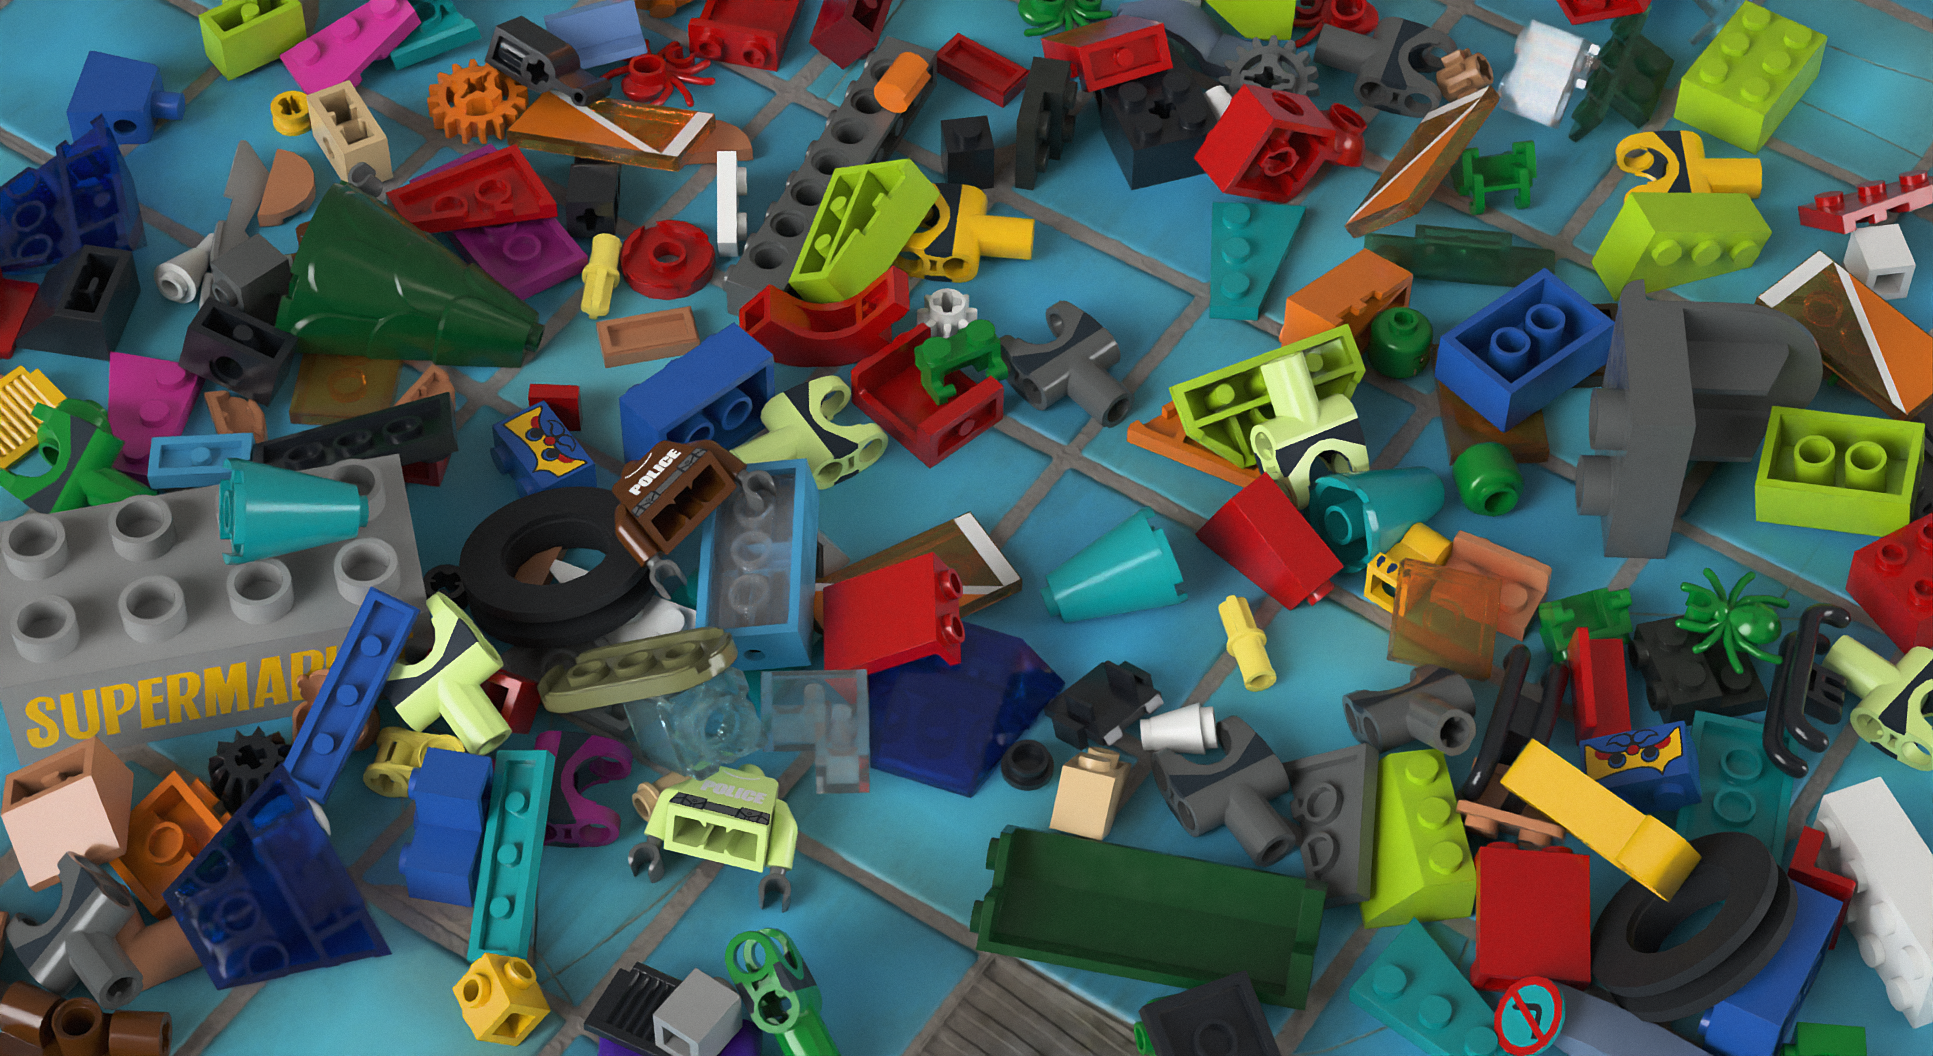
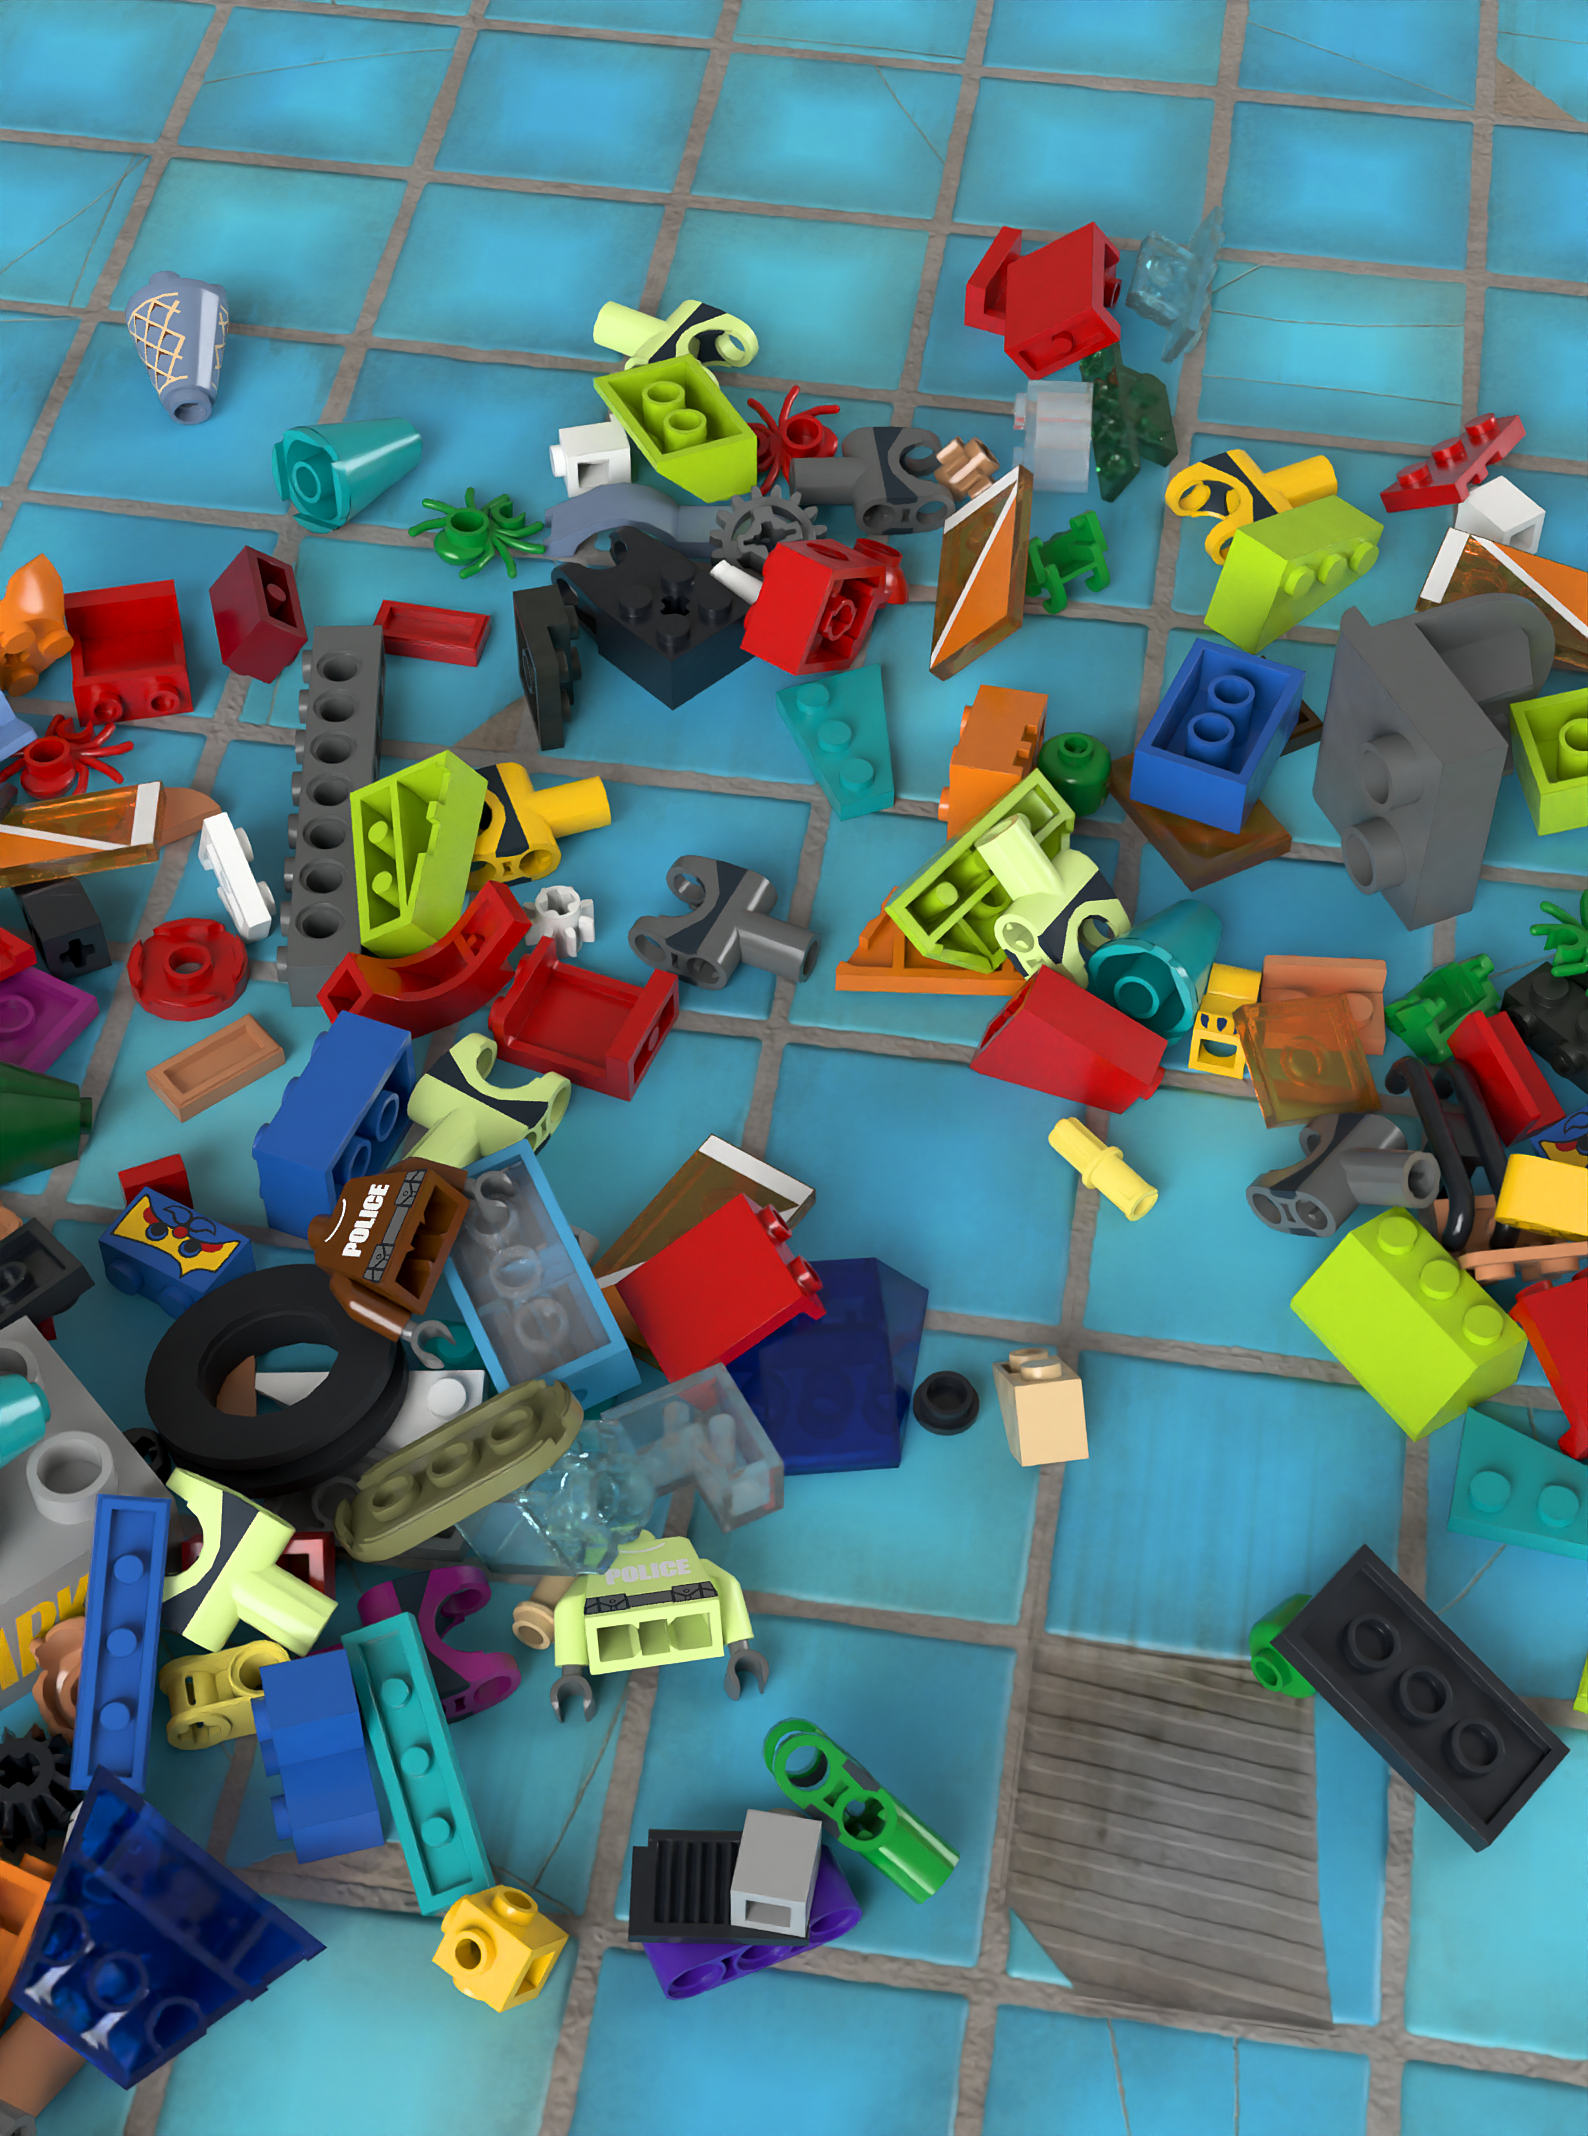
camera: 25 degrees left, 0 degrees up
(601, 275) = (121, 1015): light yellow axle -> none
(902, 82) = (369, 671): orange piece -> none
(967, 152) = (477, 725): black brick -> none
(971, 345) = (617, 944): green piece -> none
(1103, 704) = (990, 1299): black piece -> none
(1111, 51) = (584, 556): red panel -> none
(1116, 574) = (928, 1140): teal cone -> none
(1149, 914) = (1191, 1524): dark green panel -> none
(1181, 730) = (1094, 1295): white cone -> none
(1230, 792) = (1188, 1345): dark grey connector -> none
(1337, 819) = (1326, 1329): dark grey wing -> none
(1462, 255) = (1082, 659): clear green bracket -> none
(1488, 479) = (1253, 889): green head -> none
(1750, 77) = (1256, 375): lime brick -> none

